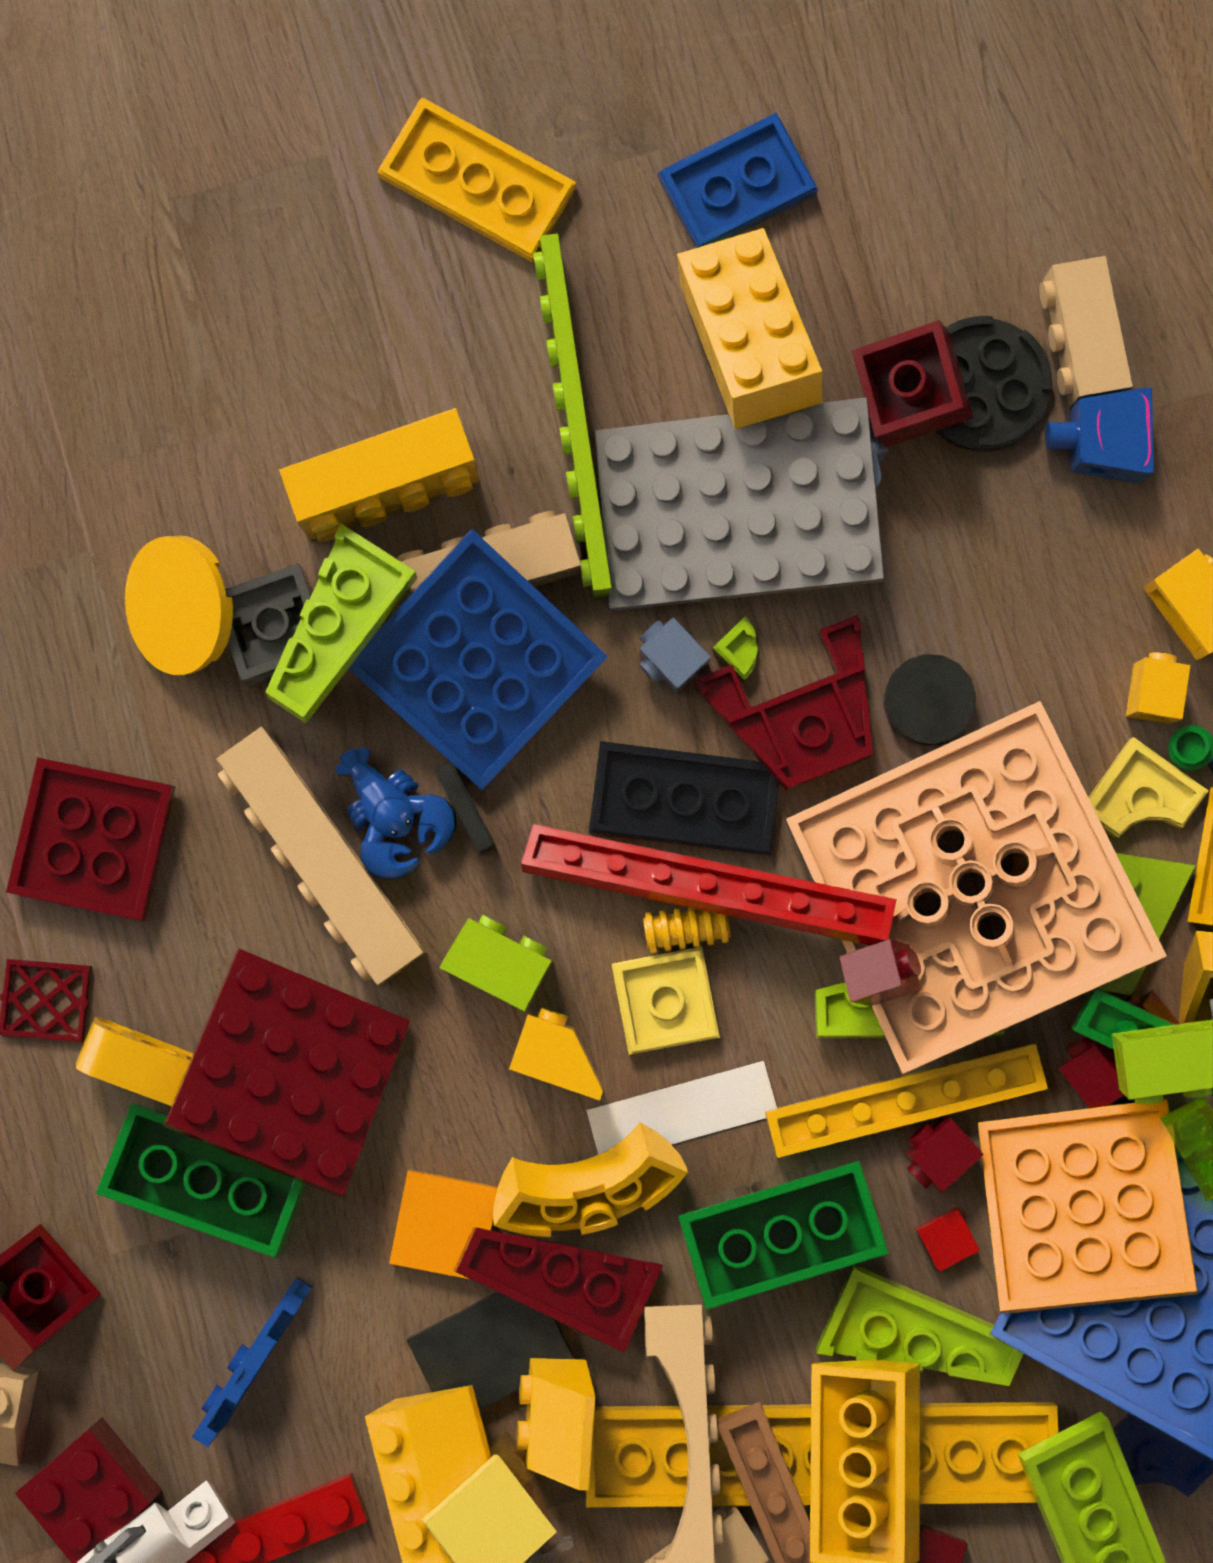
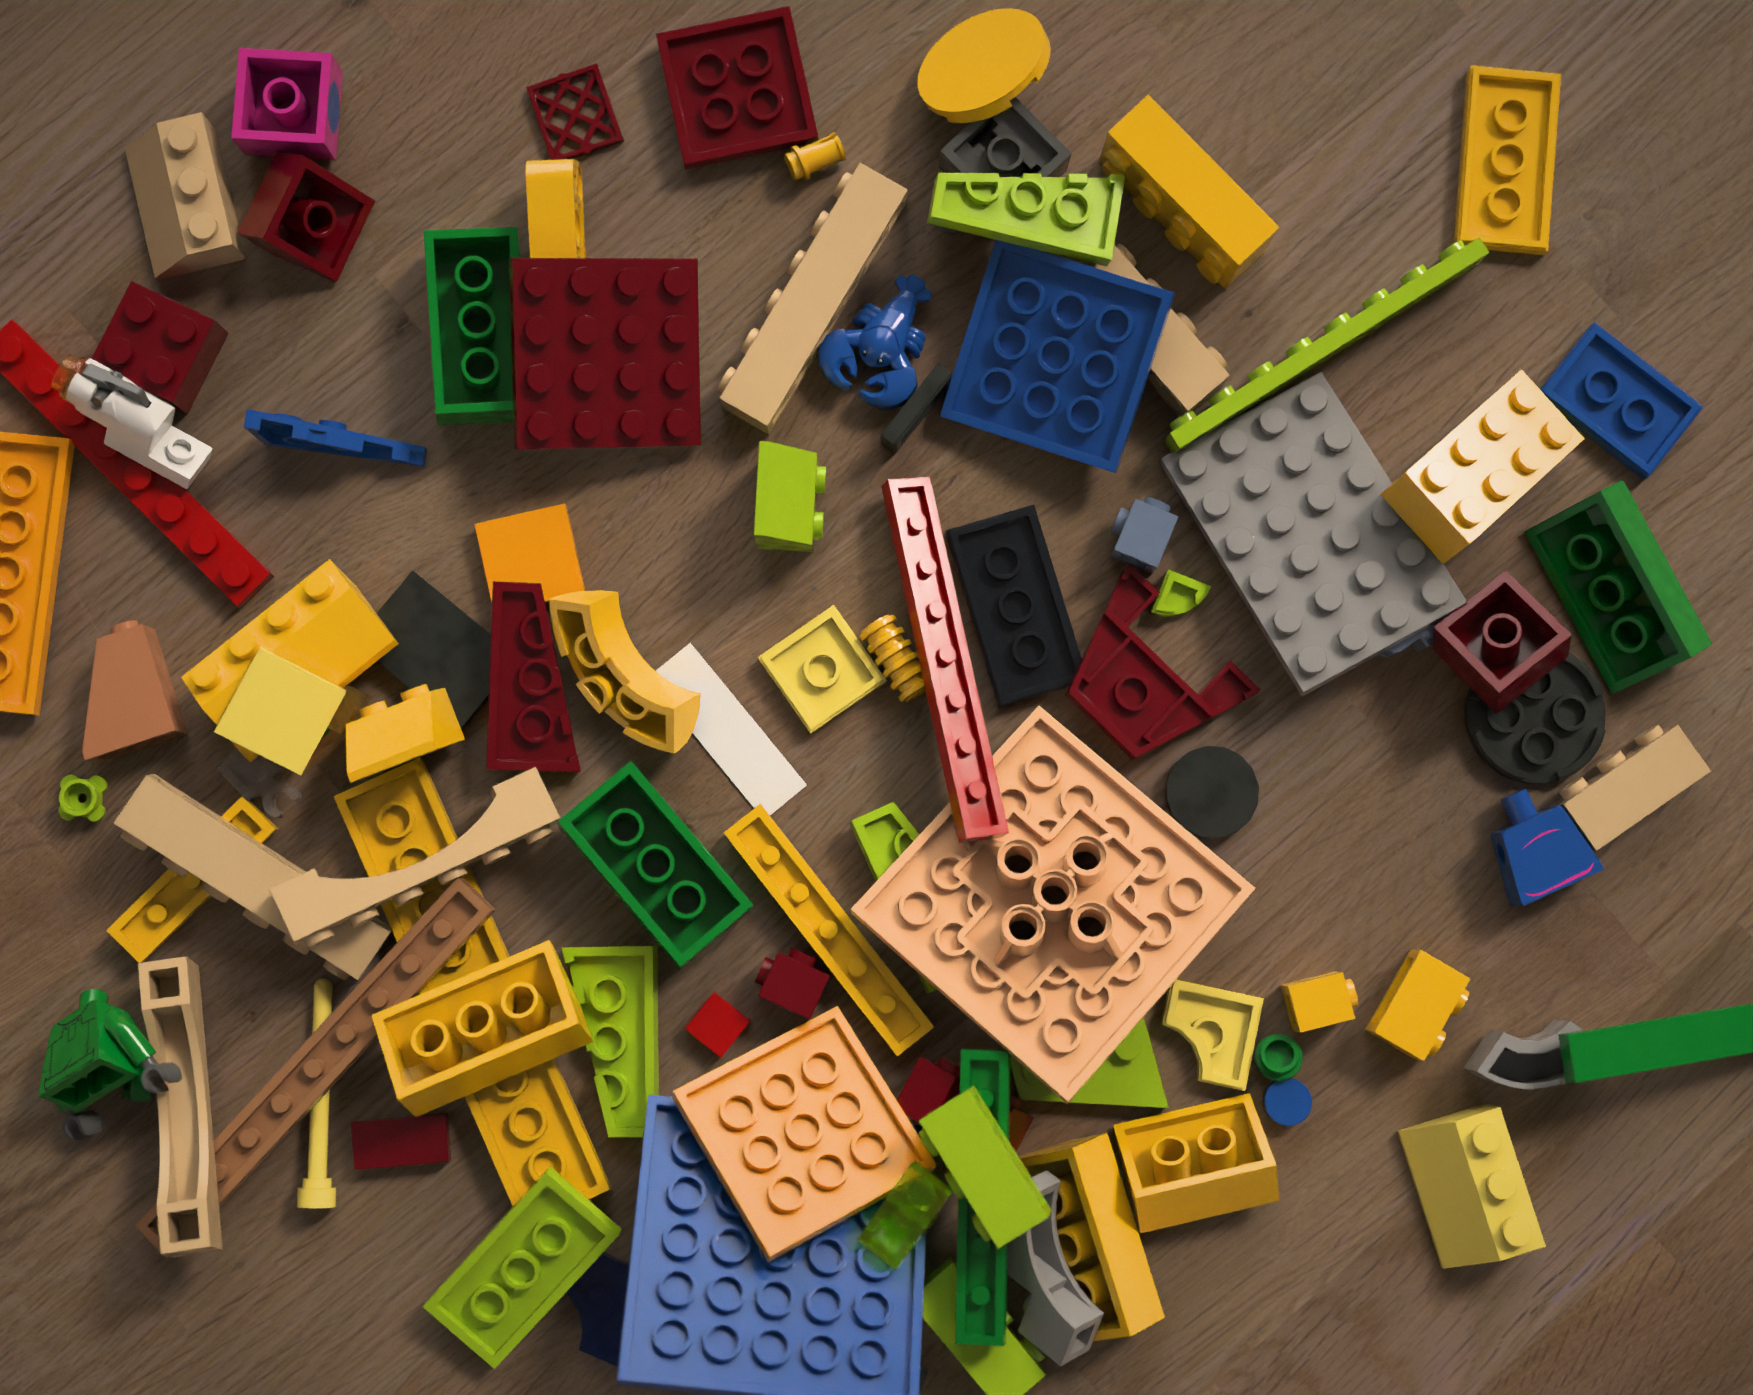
camera: 65 degrees right, 0 degrees up
(188, 796) = (814, 156): none -> yellow pin
(555, 1054) = (728, 586): yellow slope -> none
(881, 972) = (934, 845): brick -> none
(905, 260) = (1618, 587): none -> green slope

